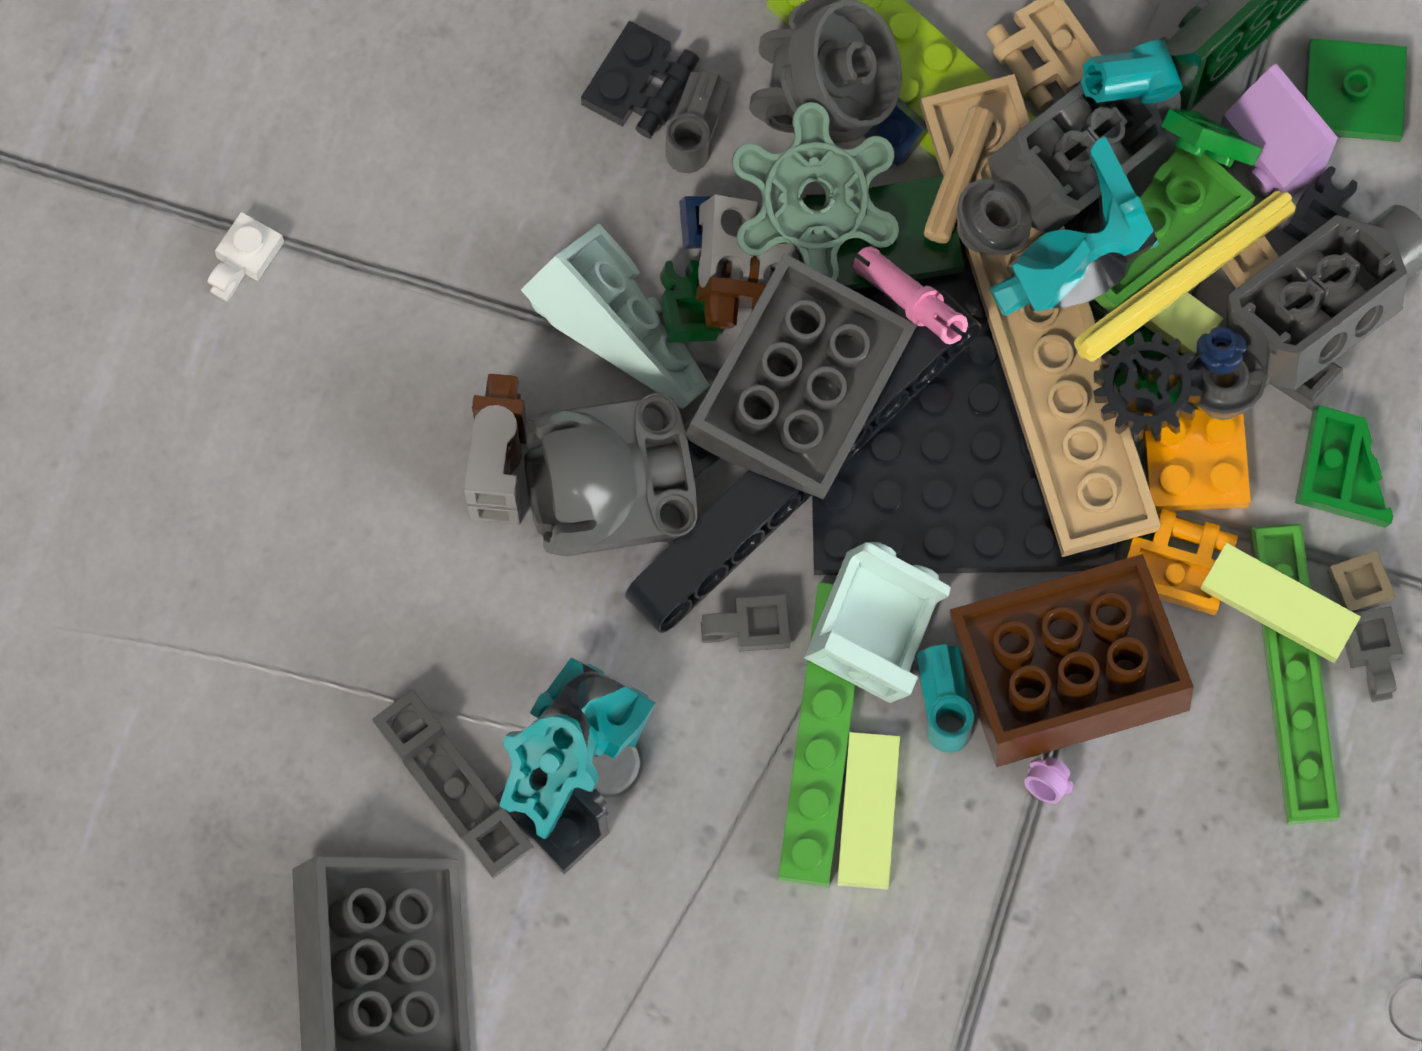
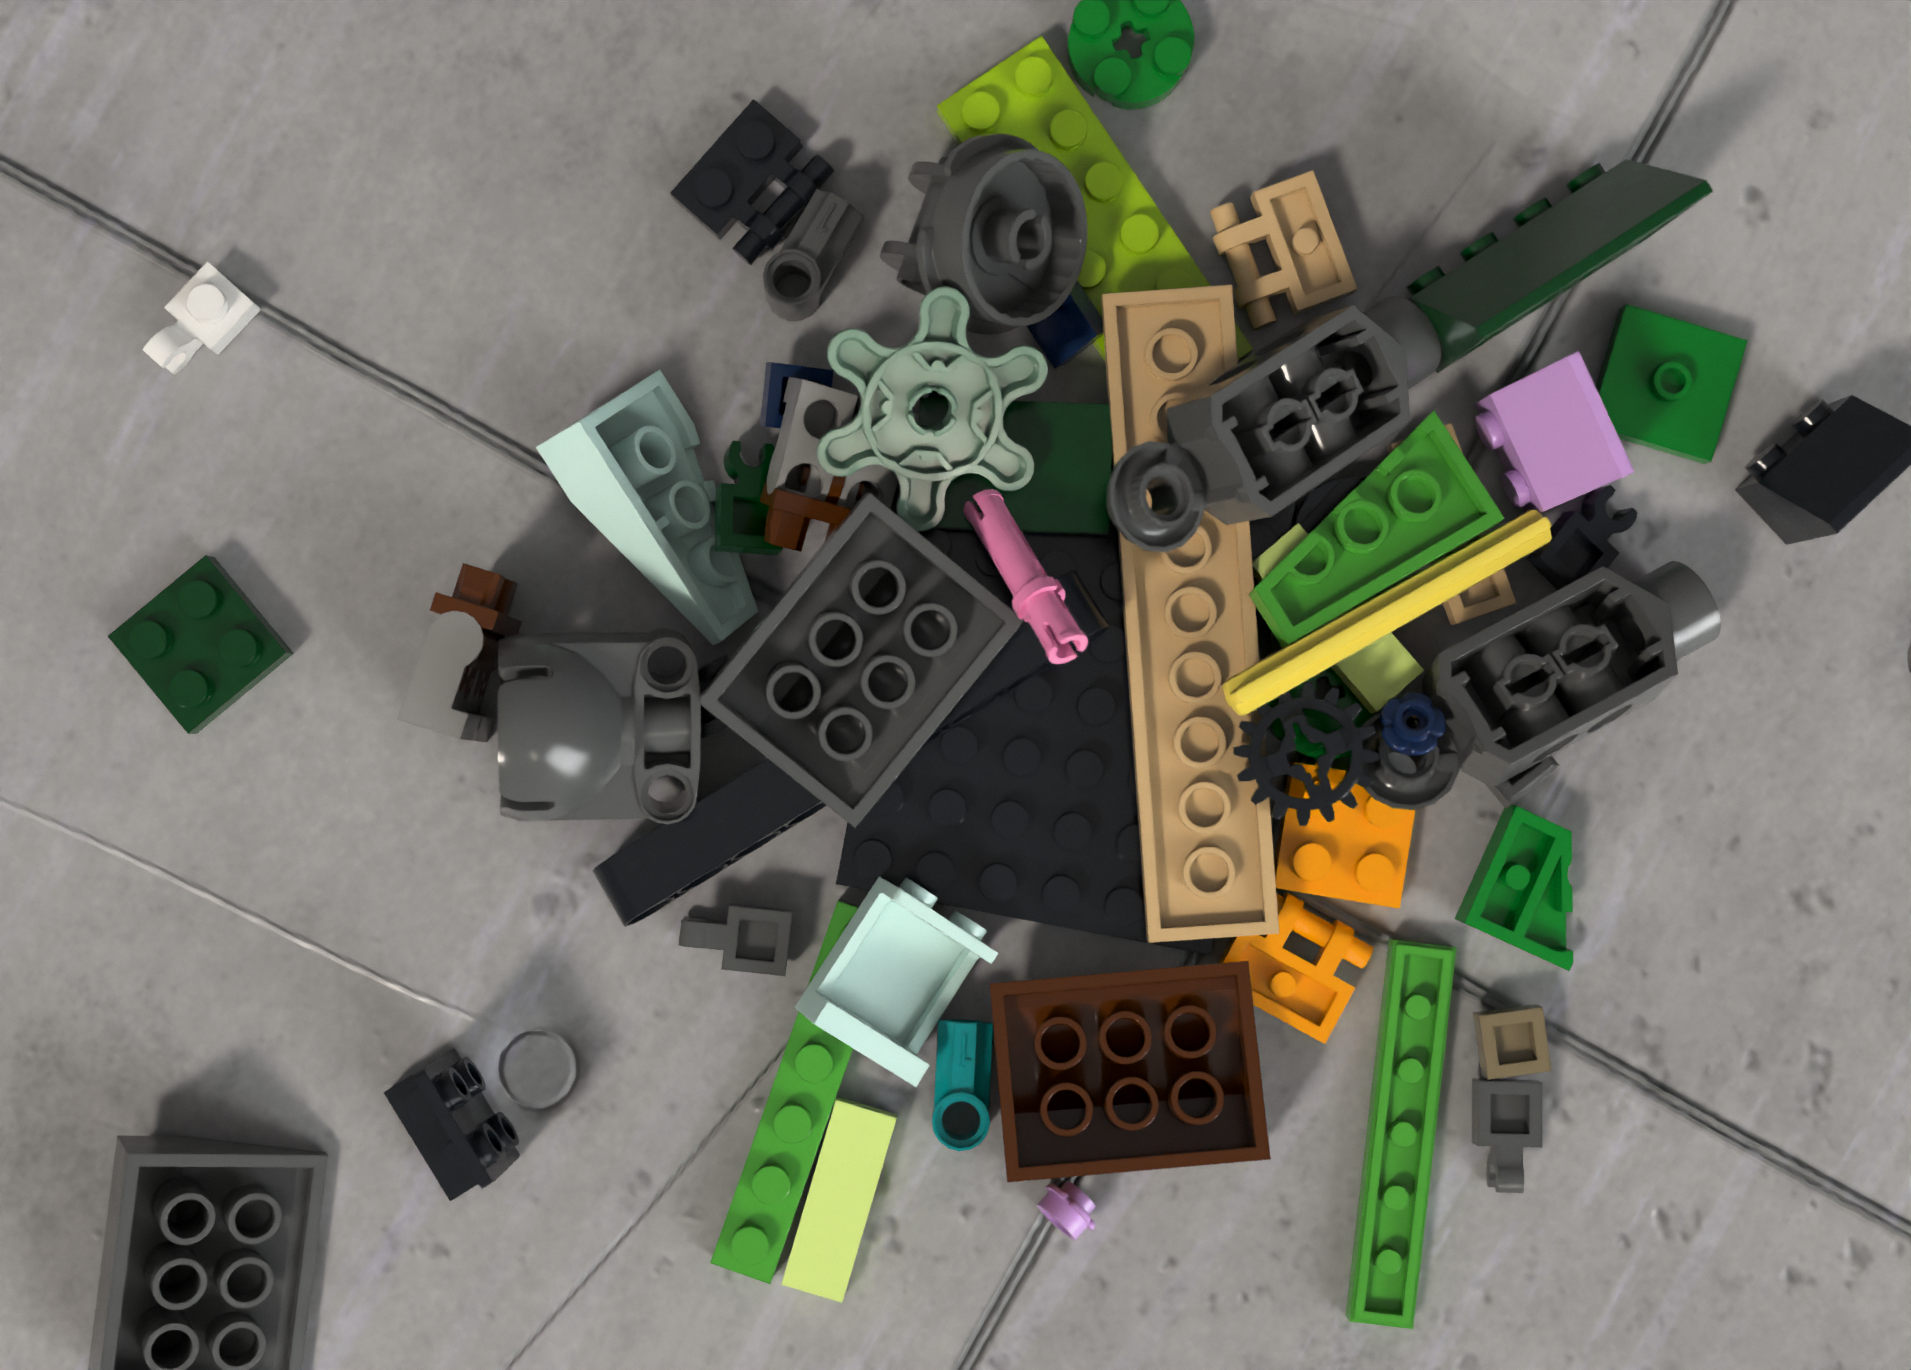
camera: 15 degrees right, 15 degrees up
(285, 492) = (200, 644): none -> dark green plate
(452, 784) = (338, 1067): dark grey slope -> none
(575, 721) = (451, 1090): teal hips -> none
(958, 173) = (1128, 412): tan axle -> none
(1076, 266) = (1240, 587): teal hips -> none
(1140, 73) = (1396, 330): teal piece -> none
(1201, 133) = (1464, 429): green wing -> none
(1280, 602) = (1406, 1056): yellowish green tile -> none

